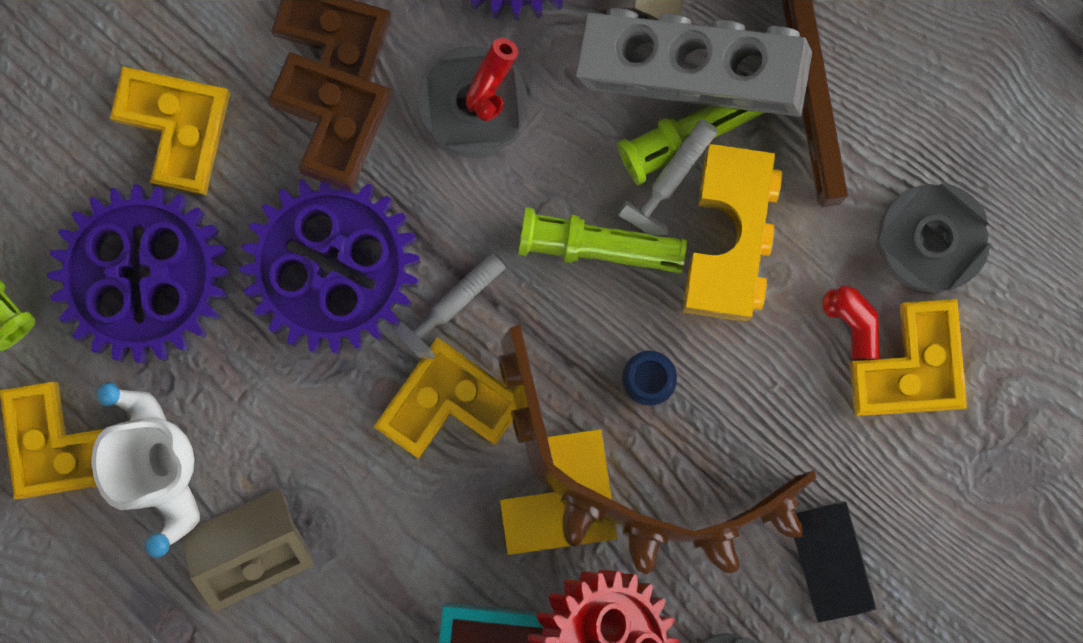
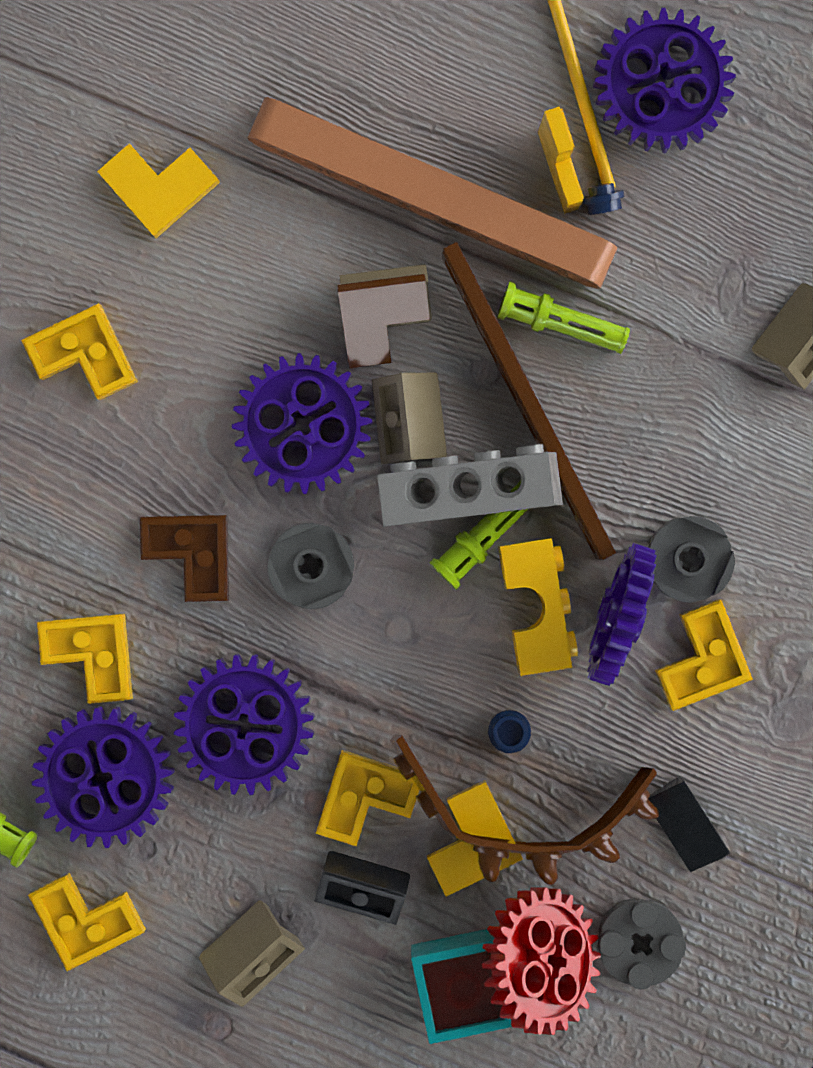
camera: 20 degrees left, 5 degrees up
(146, 465) = (157, 918): white piece -> none
(345, 114) = (219, 607): reddish brown tile -> none
(408, 513) = (362, 887): none -> black slope
(450, 305) = (343, 724): light grey piece -> none
(490, 74) = (317, 548): red arm -> none
(574, 239) = (422, 645): lime pin -> none
(669, 179) = (478, 580): light grey piece -> none
(833, 264) = (621, 614): none -> dark purple gear
(859, 316) = (656, 638): red arm -> none

